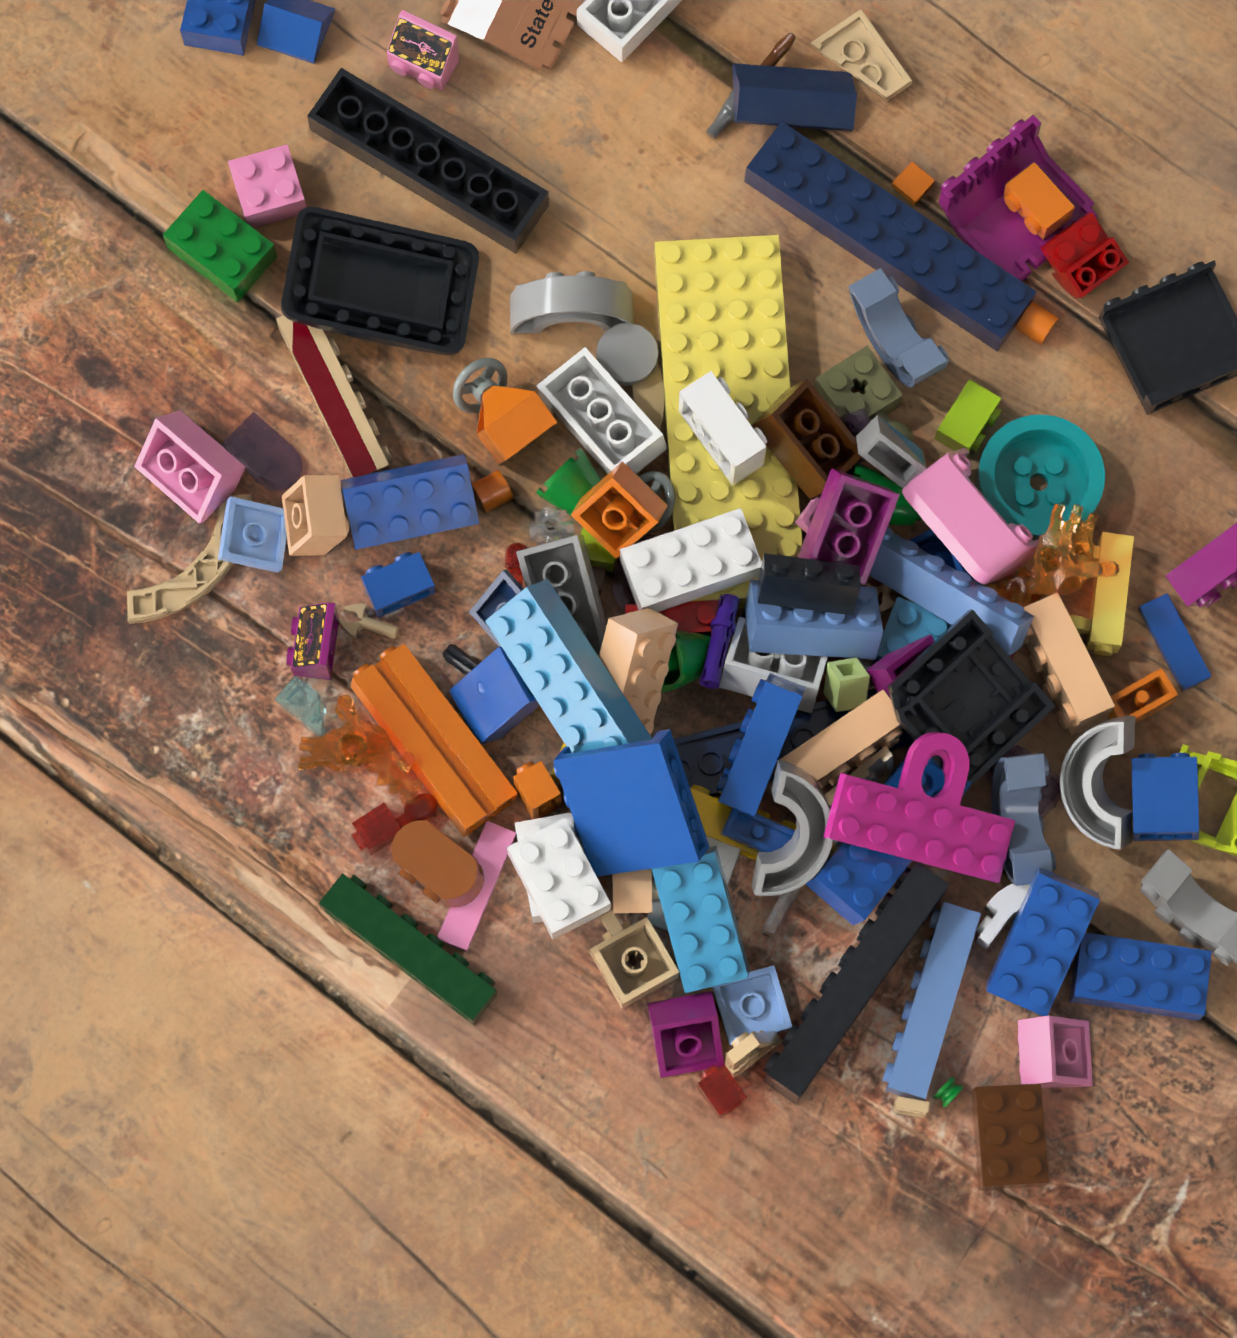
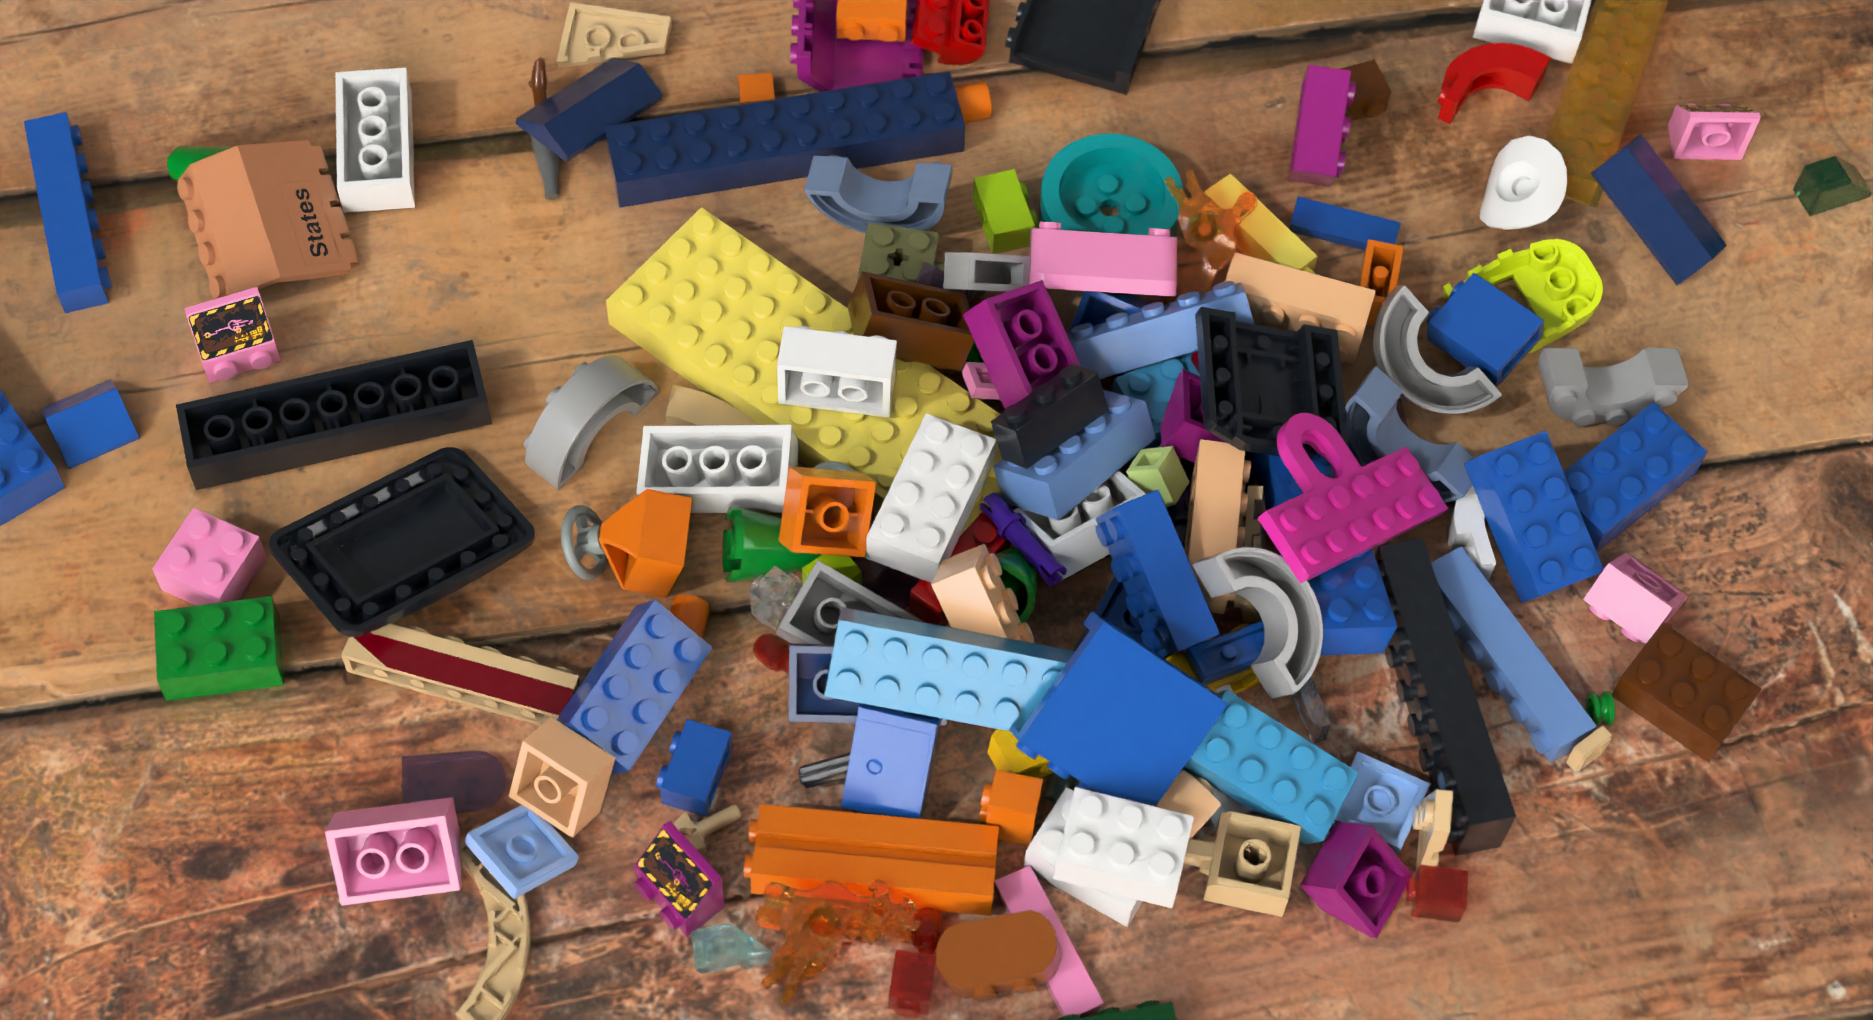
camera: 50 degrees left, 15 degrees down
(628, 353) = (679, 402): light grey tile -> none

